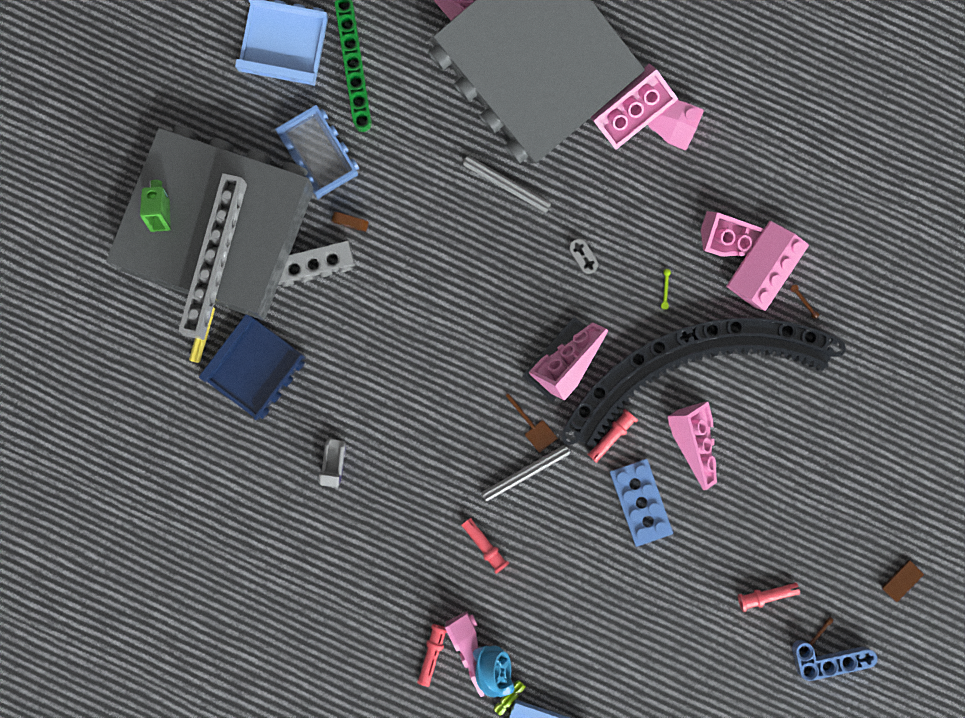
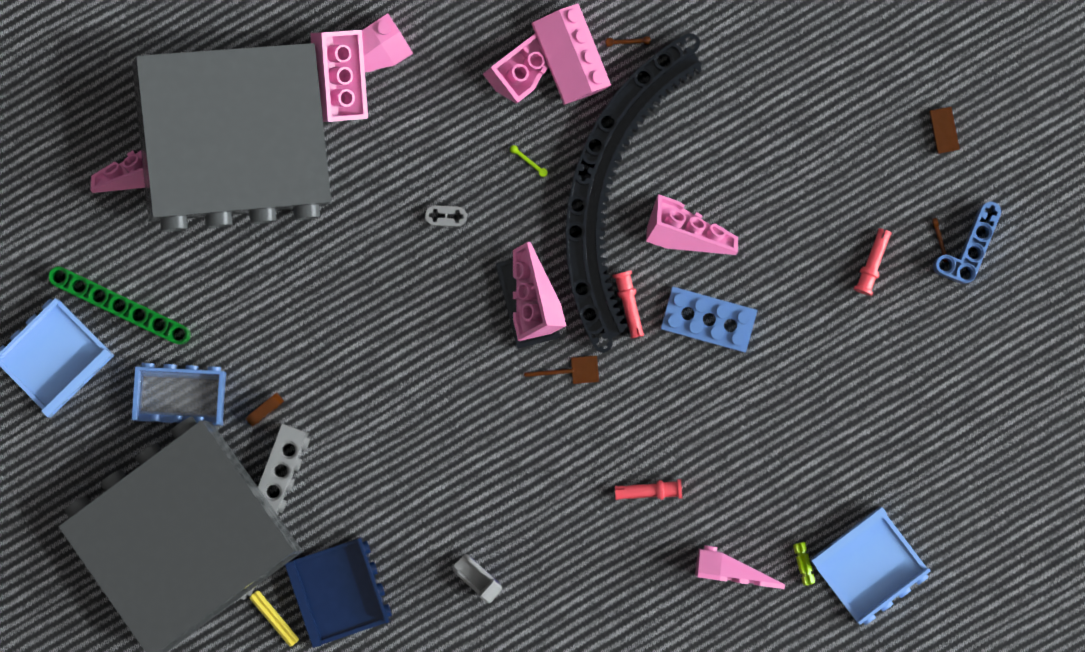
camera: 55 degrees left, 0 degrees up
(155, 207) = (132, 577): bright green torso -> none
(213, 256) = (215, 555): light grey brick -> none
(434, 645) = (709, 599): coral pin -> none
(493, 671) = (768, 561): dark azure piece -> none
(506, 183) = (329, 240): light grey axle -> none
(525, 473) = (609, 407): light grey axle -> none

